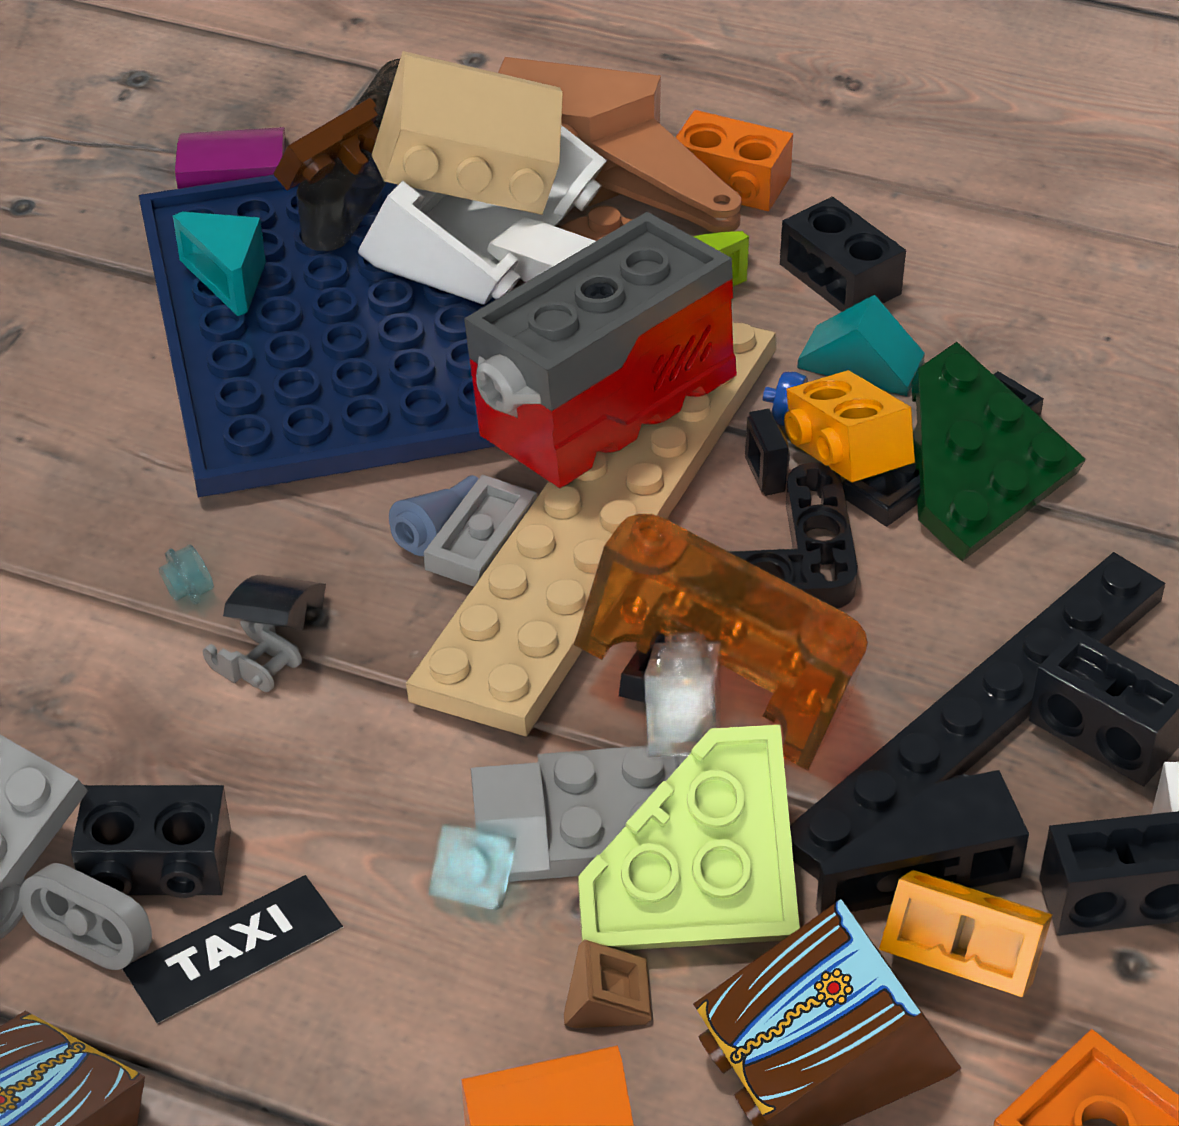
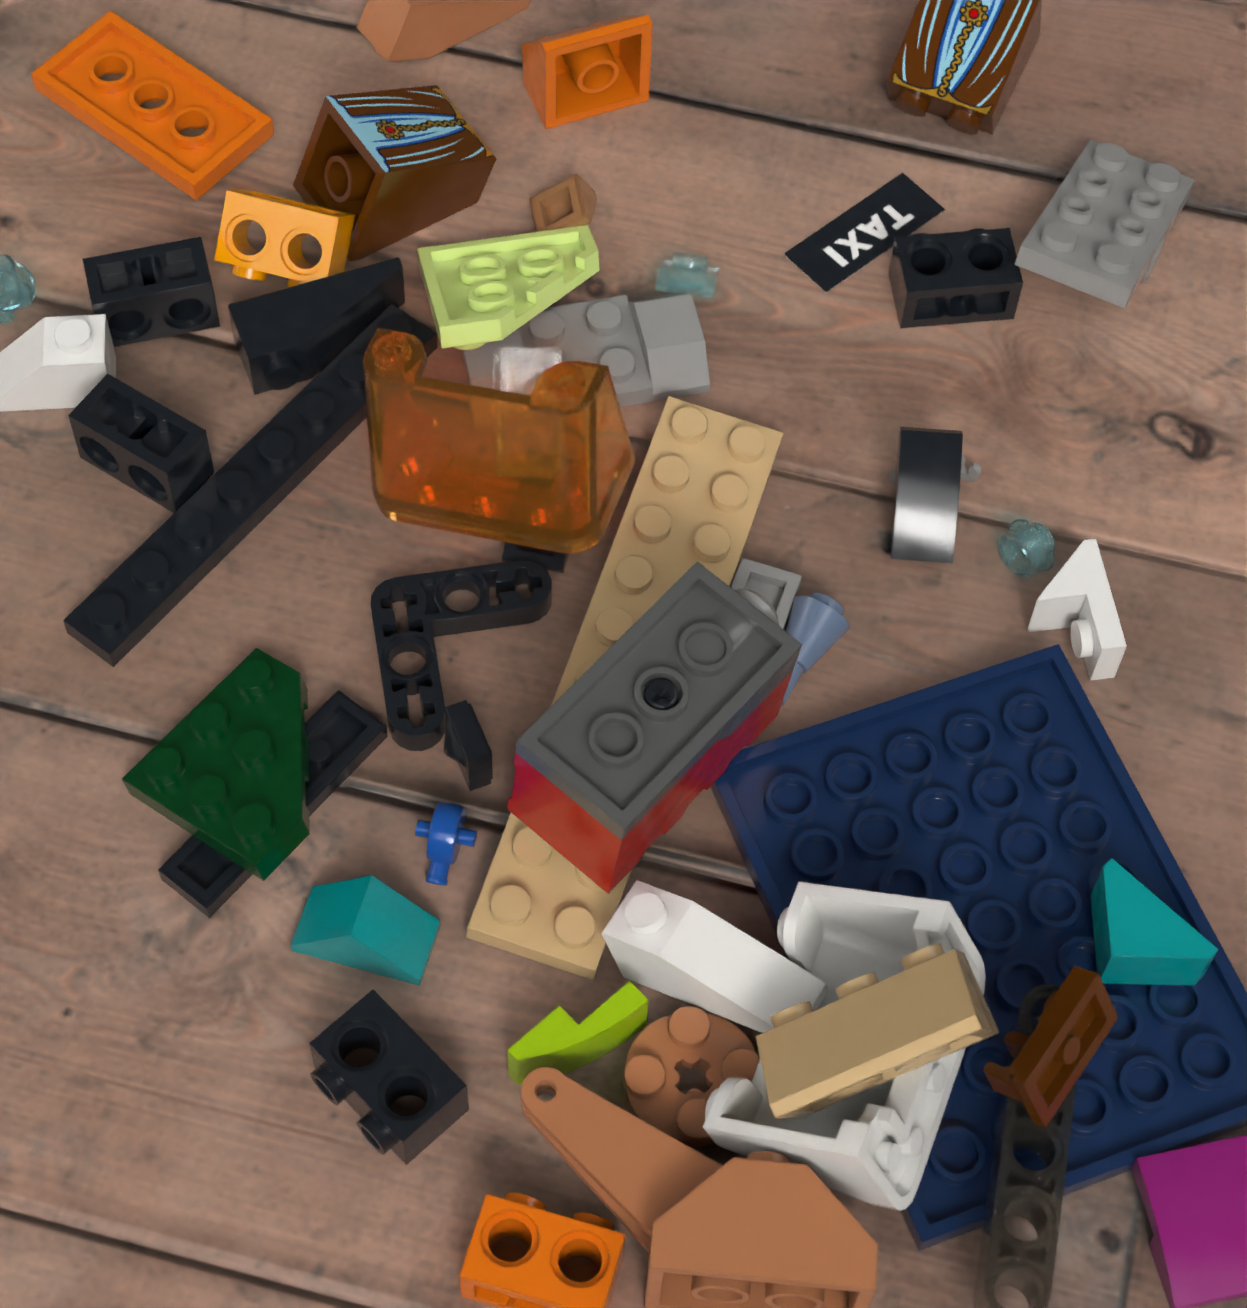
camera: 170 degrees right, 15 degrees up
(85, 916) = (965, 206): light grey plate -> none
(161, 513) = (1083, 600): none -> white slope
(850, 425) = (364, 767): light orange brick -> none

